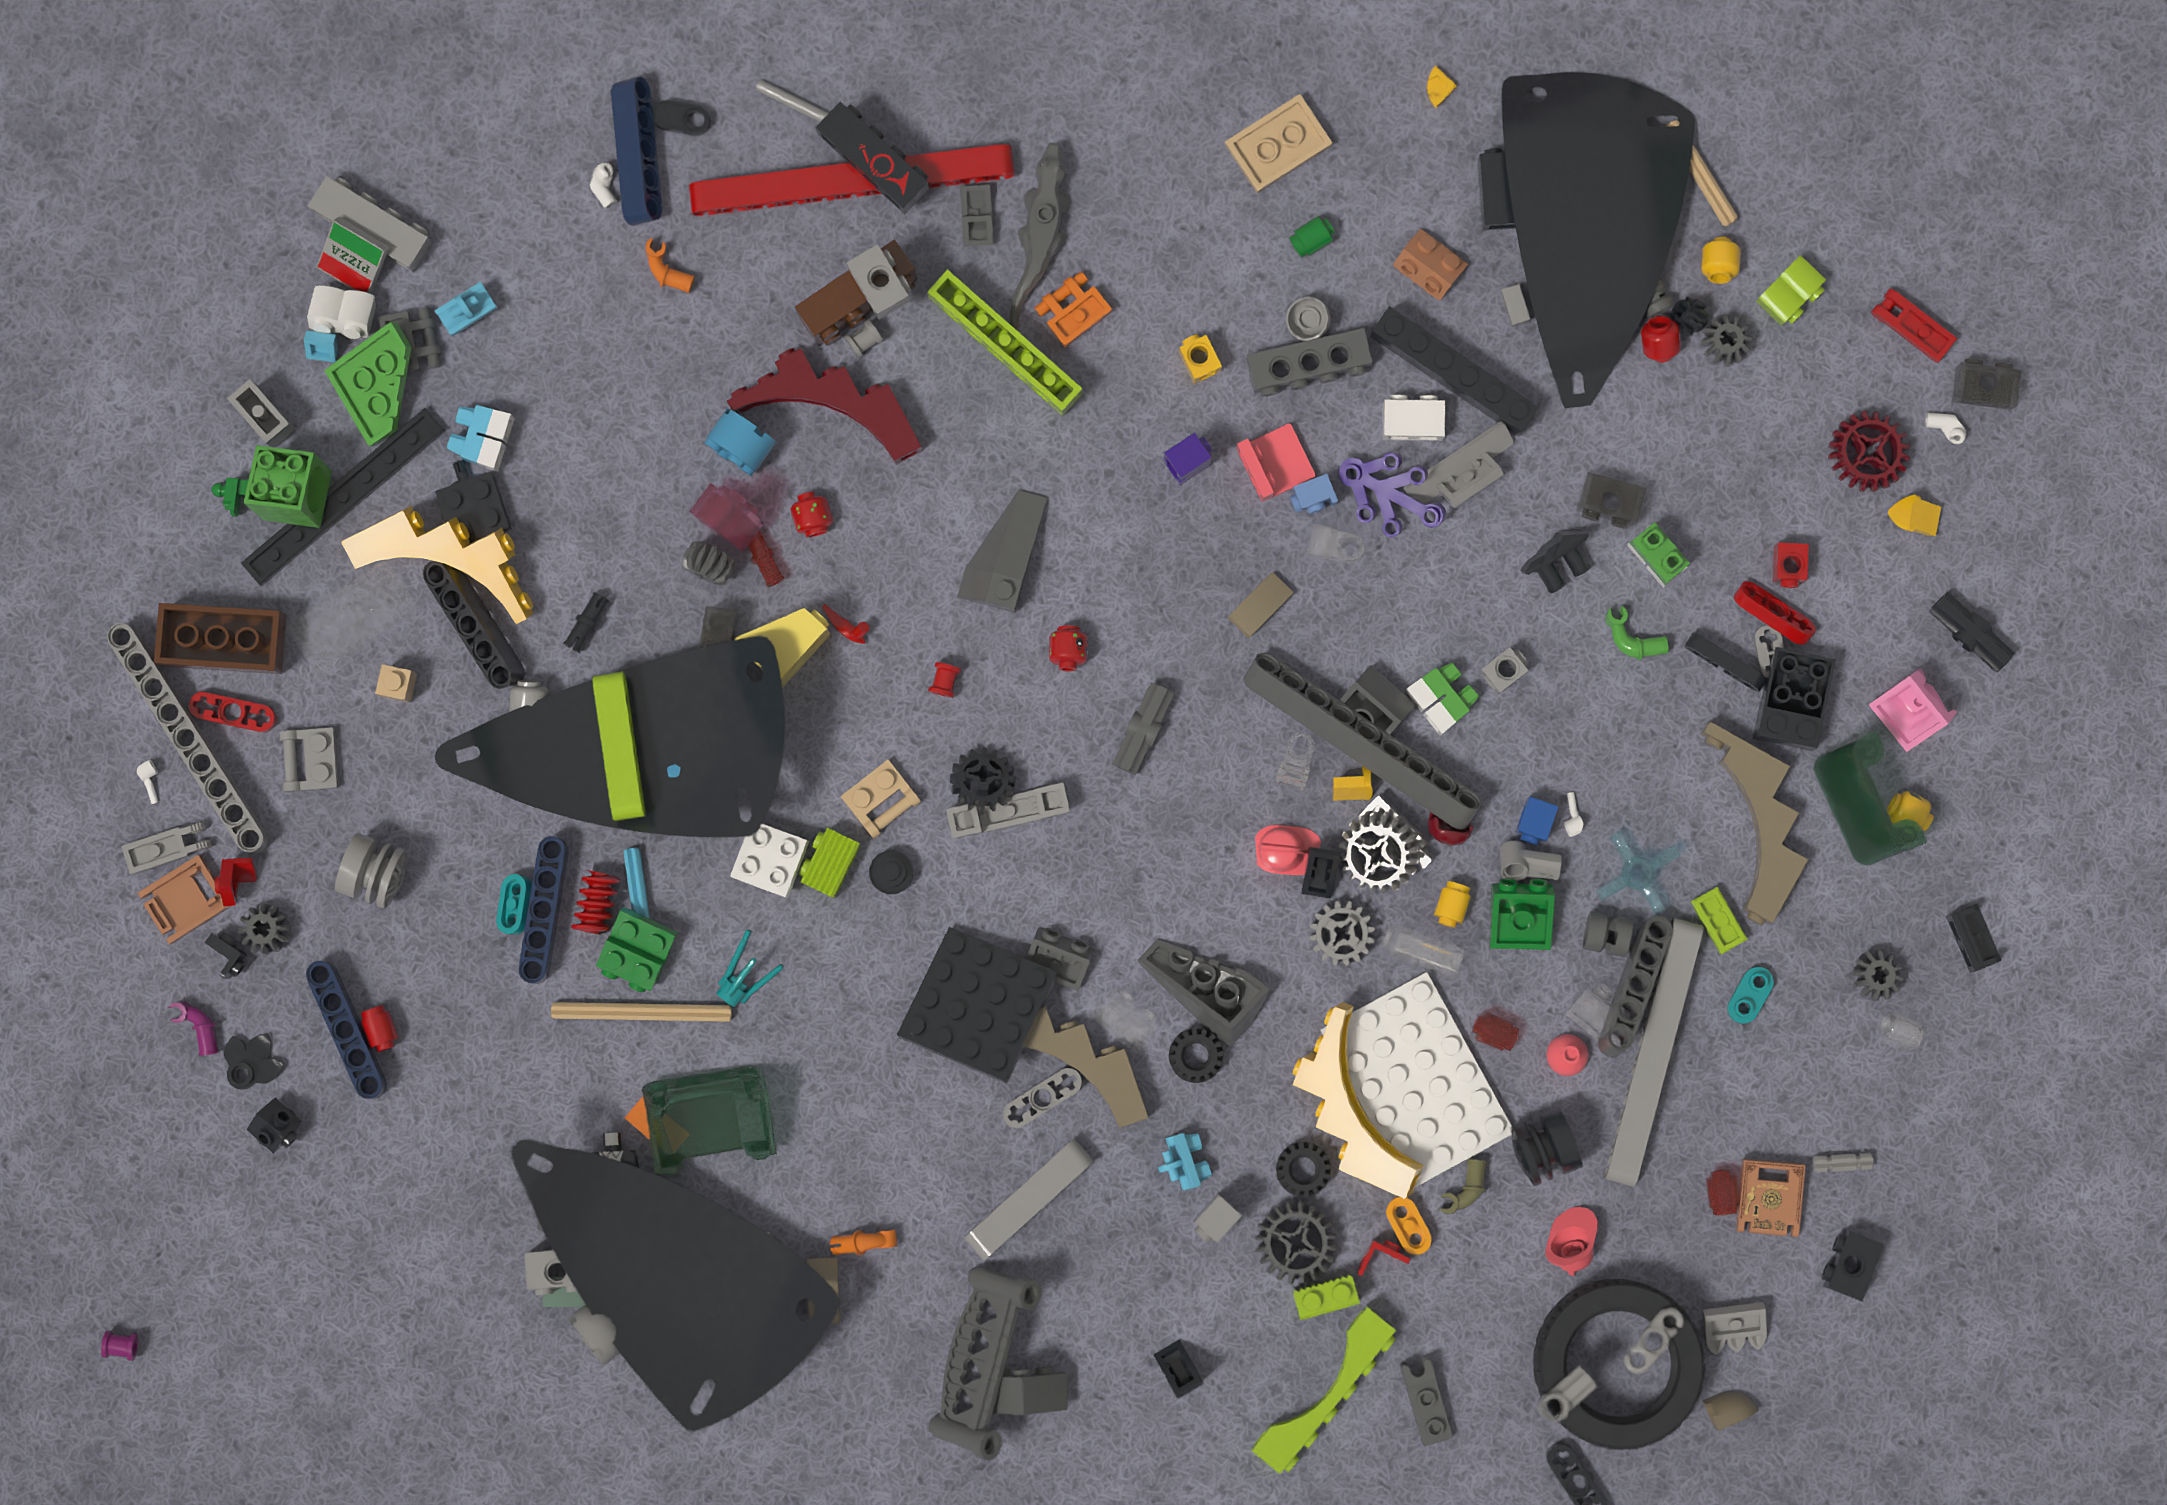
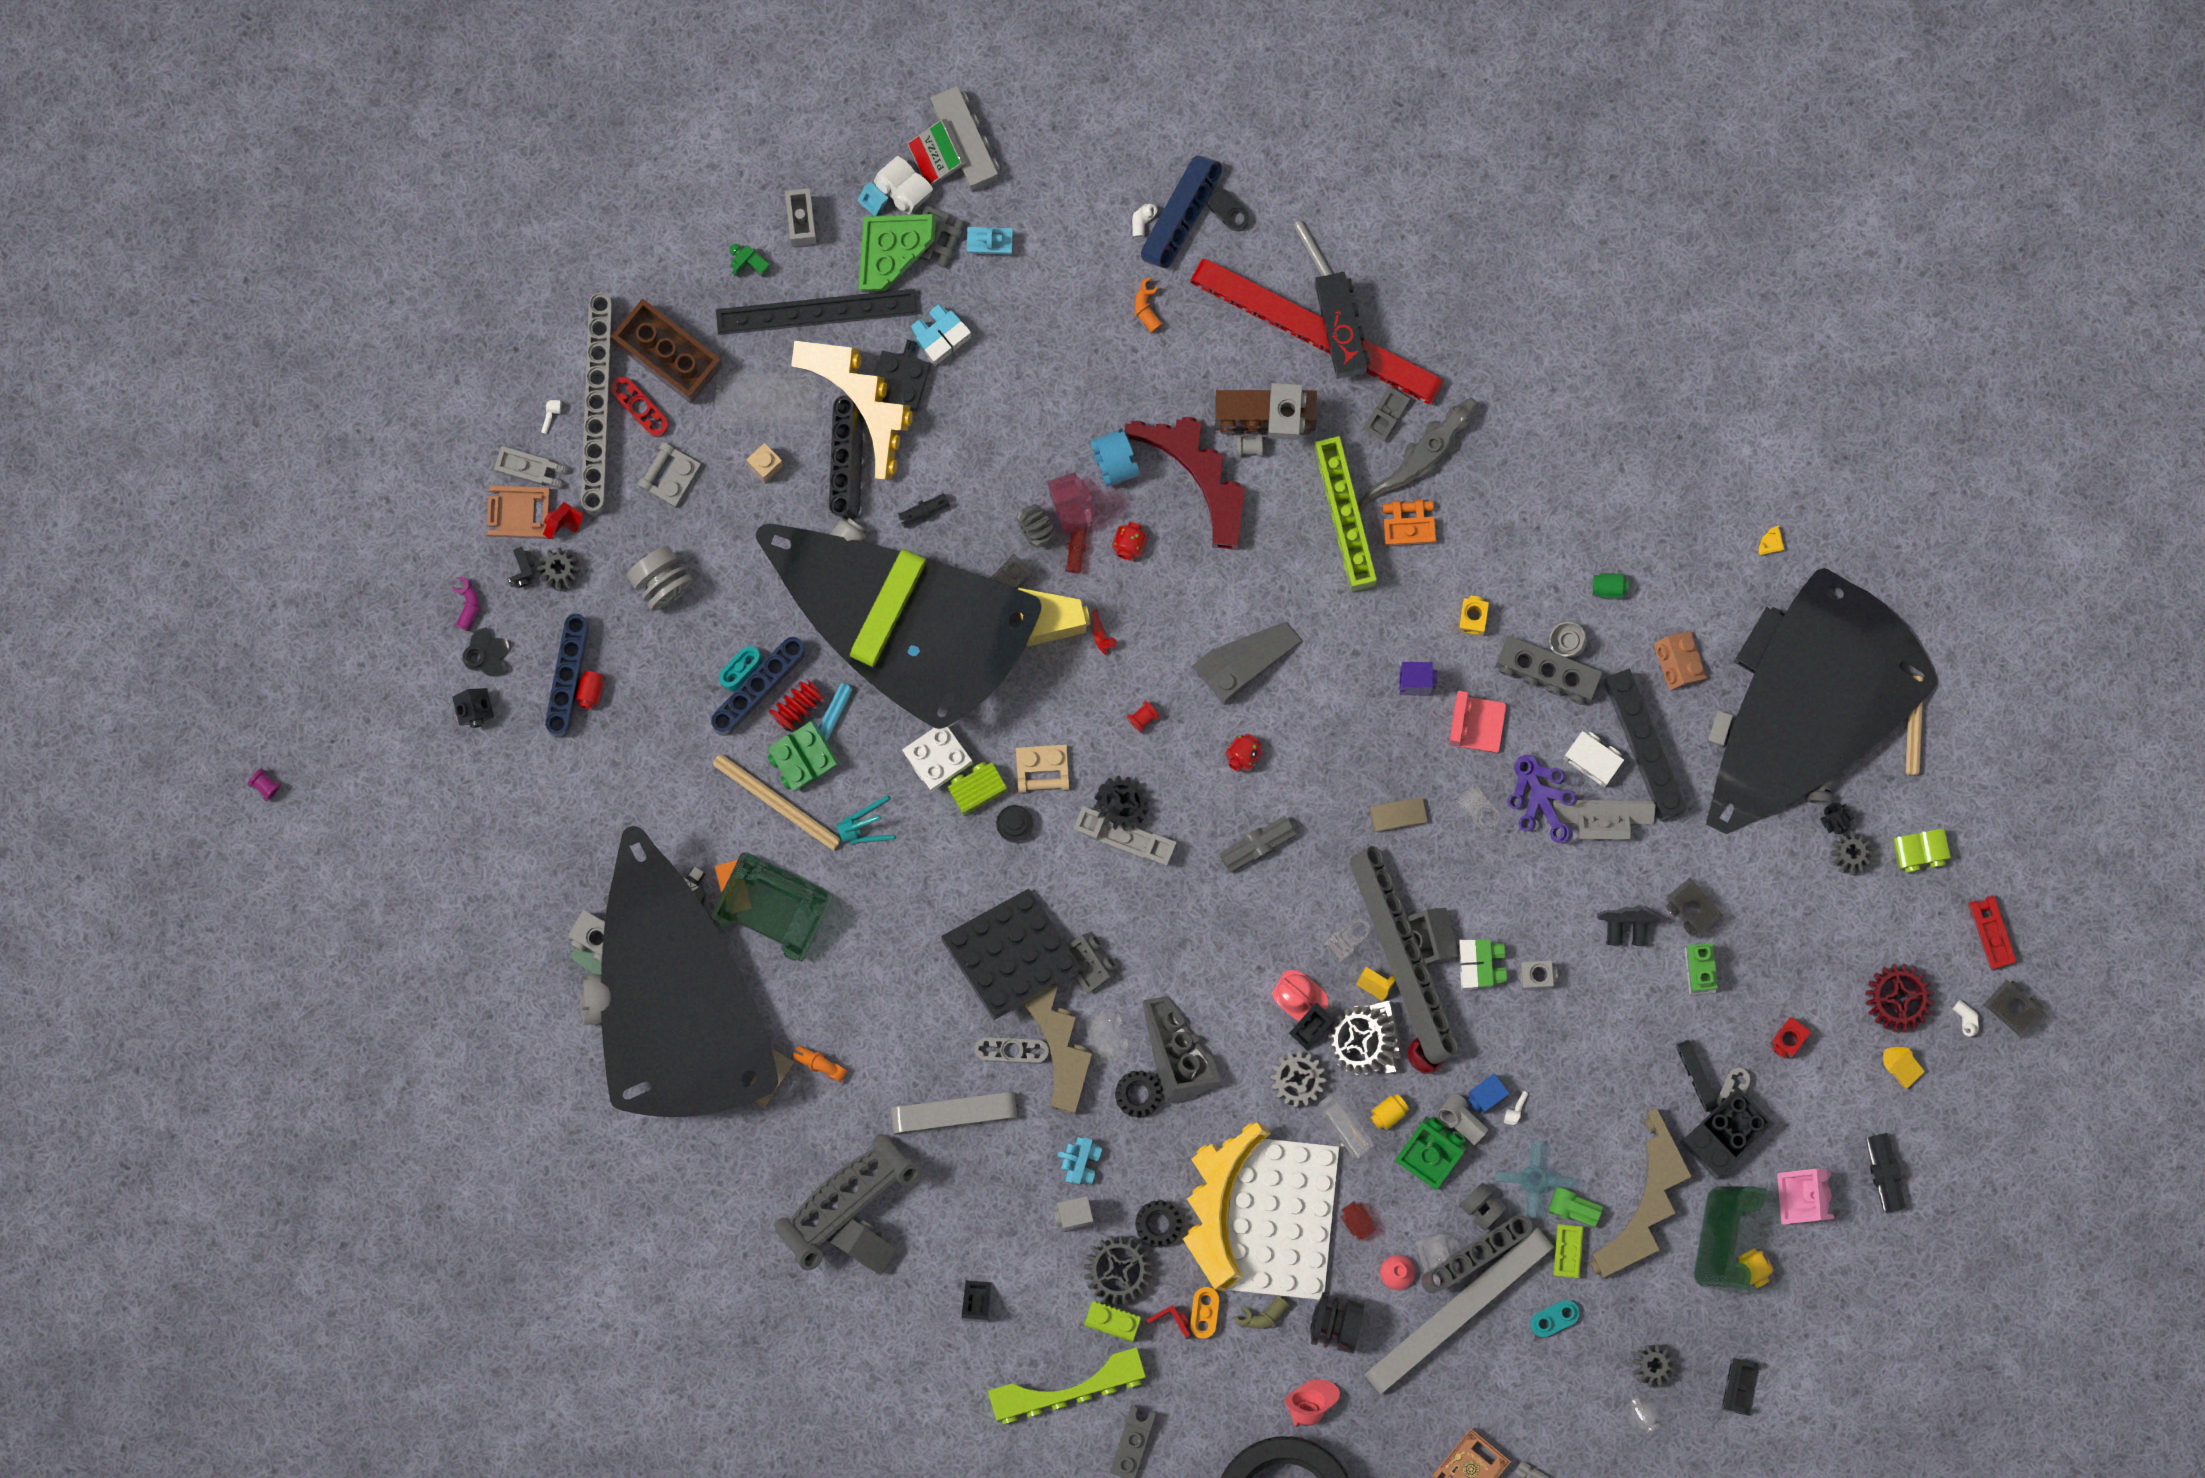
camera: 30 degrees right, 5 degrees down
(288, 486) = (784, 278): bright green brick -> none
(1278, 143) = (1631, 505): tan plate -> none
(1313, 495) = (1487, 763): medium blue brick -> none
(1634, 646) = (1639, 1020): bright green piece -> none
(1661, 339) = (1805, 820): red head -> none
(1689, 874) = (1571, 1206): none -> bright green piece
(1720, 260) = (1886, 795): yellow head -> none
(1722, 1192) = (1440, 1441): clear red brick -> none
(1787, 622) = (1749, 1051): red beam -> none

